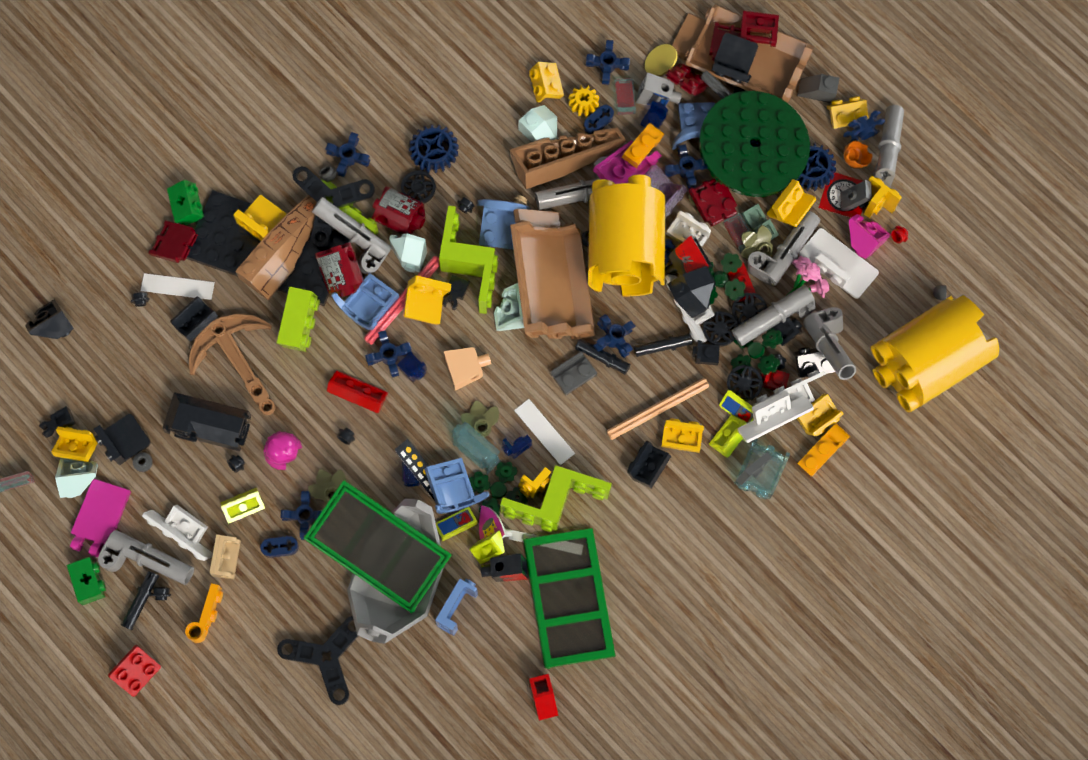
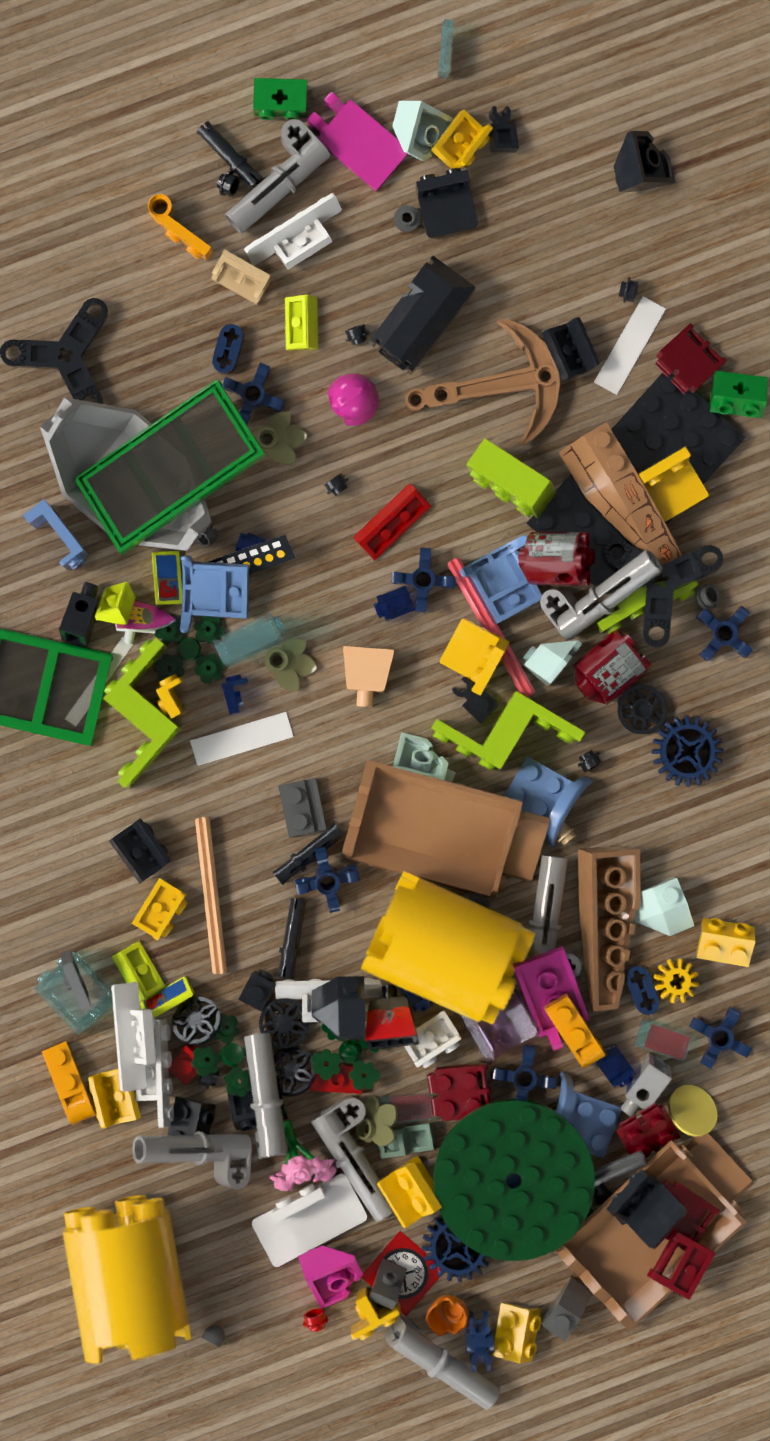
camera: 110 degrees right, 15 degrees up
(134, 670) = (145, 117): bracket -> none

